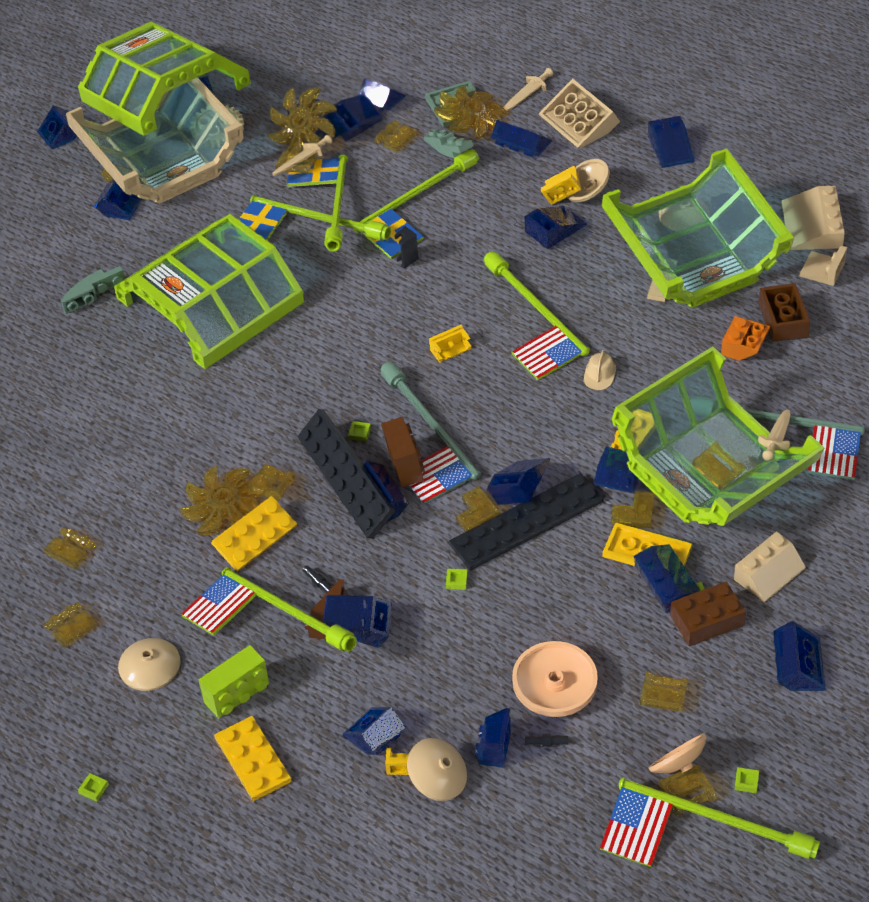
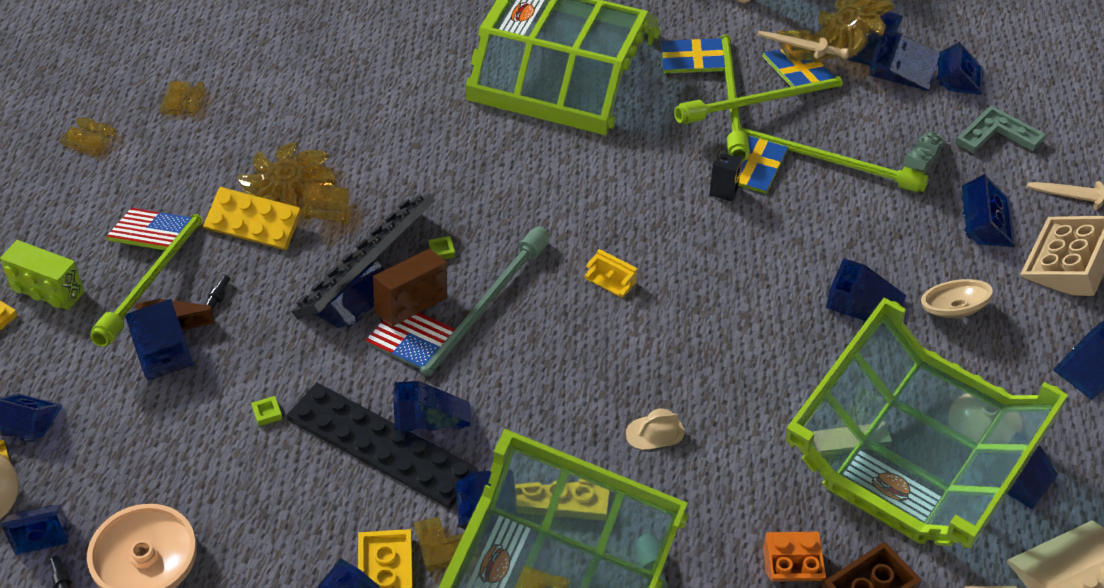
camera: 60 degrees right, 0 degrees up
(152, 671) = (61, 211): tan dish -> none
(398, 139) = (907, 114): clear yellow plate -> none
(469, 111) = (991, 152): clear yellow piece -> none
(480, 509) = (373, 395): clear yellow plate -> none
(549, 349) = (674, 373): flag -> none
(561, 185) = (930, 279): yellow bracket -> none

